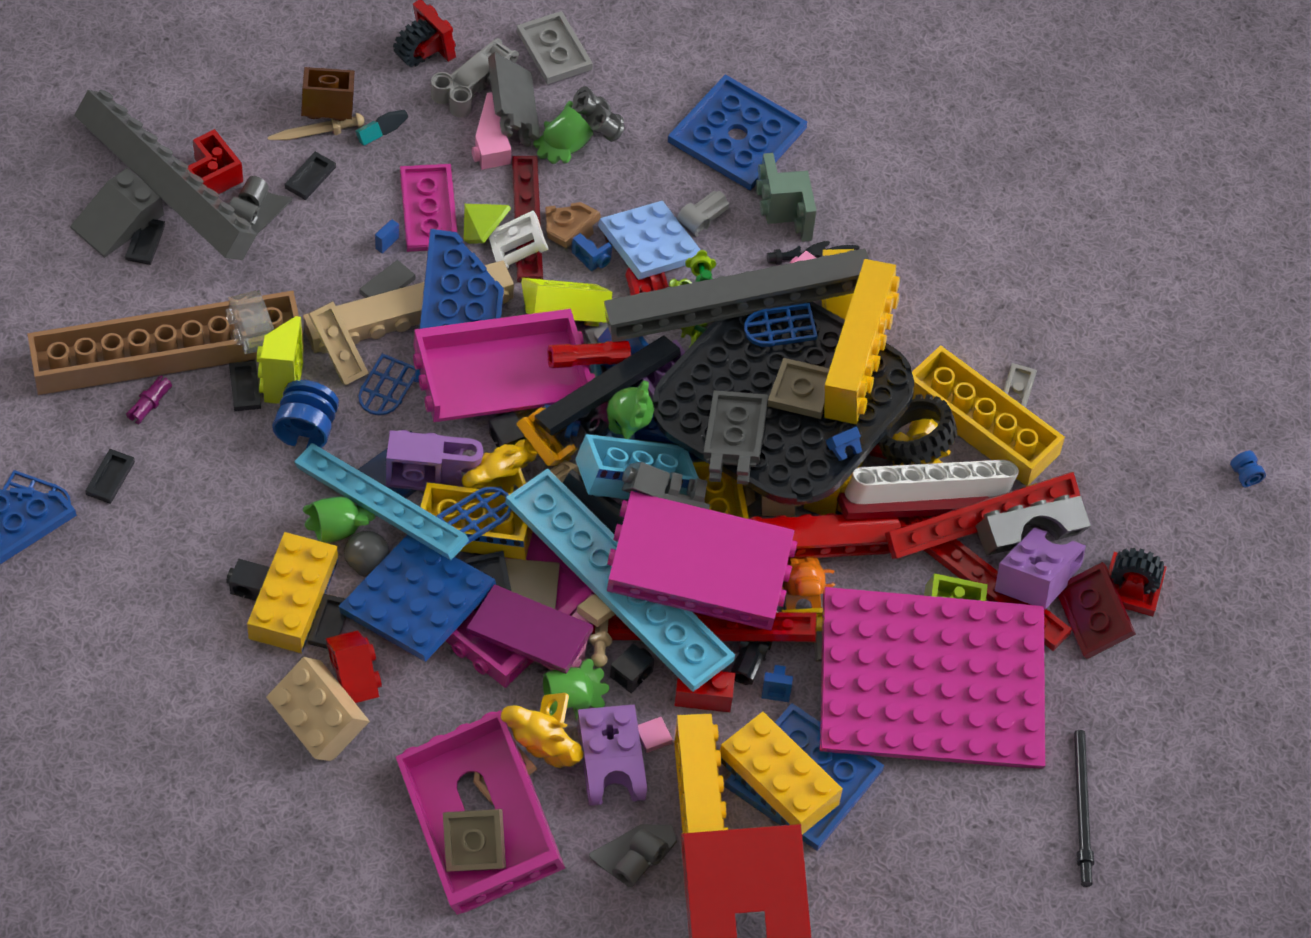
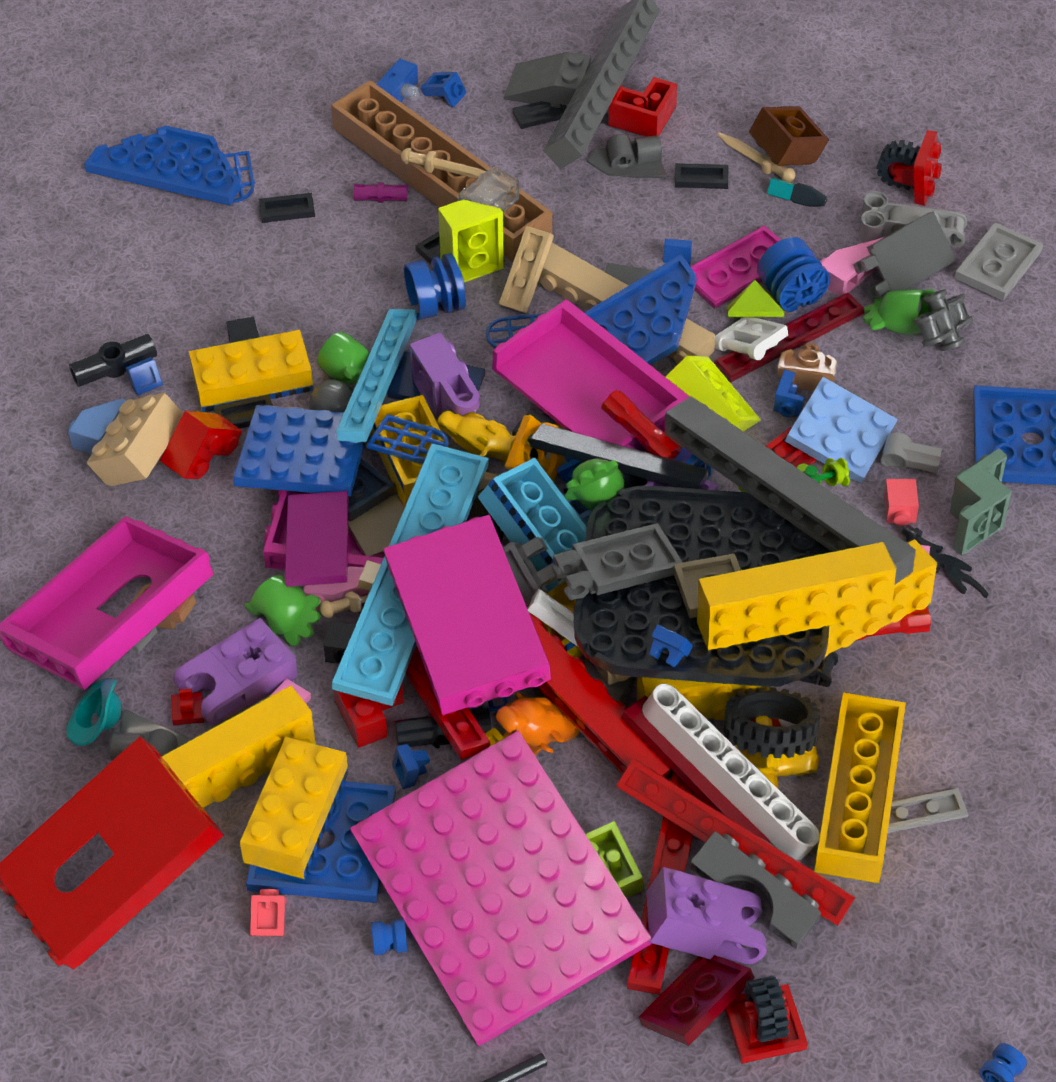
camera: 65 degrees right, 5 degrees down
(29, 317) = (401, 81): none -> blue piece
(59, 289) = (445, 84): none -> blue bracket
(174, 340) = (430, 162): none -> tan sword
(198, 701) = (112, 360): none -> black piece
(234, 673) = (144, 376): none -> blue tile
(271, 735) = (91, 425): none -> medium blue slope
(474, 840) = (70, 609): dark tan plate -> none
(480, 176) = (793, 274): none -> blue wheel
(543, 733) = (208, 598): yellow piece -> none
(587, 858) = (100, 700): none -> teal hat
(615, 809) = (187, 707): none -> red tile
(645, 479) = (510, 520): dark grey brick -> none
(738, 505) = (553, 614): none -> white tile
(744, 244) = (901, 501): none -> coral brick
(790, 329) = (778, 529): blue window -> none
(852, 844) = (268, 913): none -> coral bracket
(923, 774) = (389, 937): none -> blue wheel

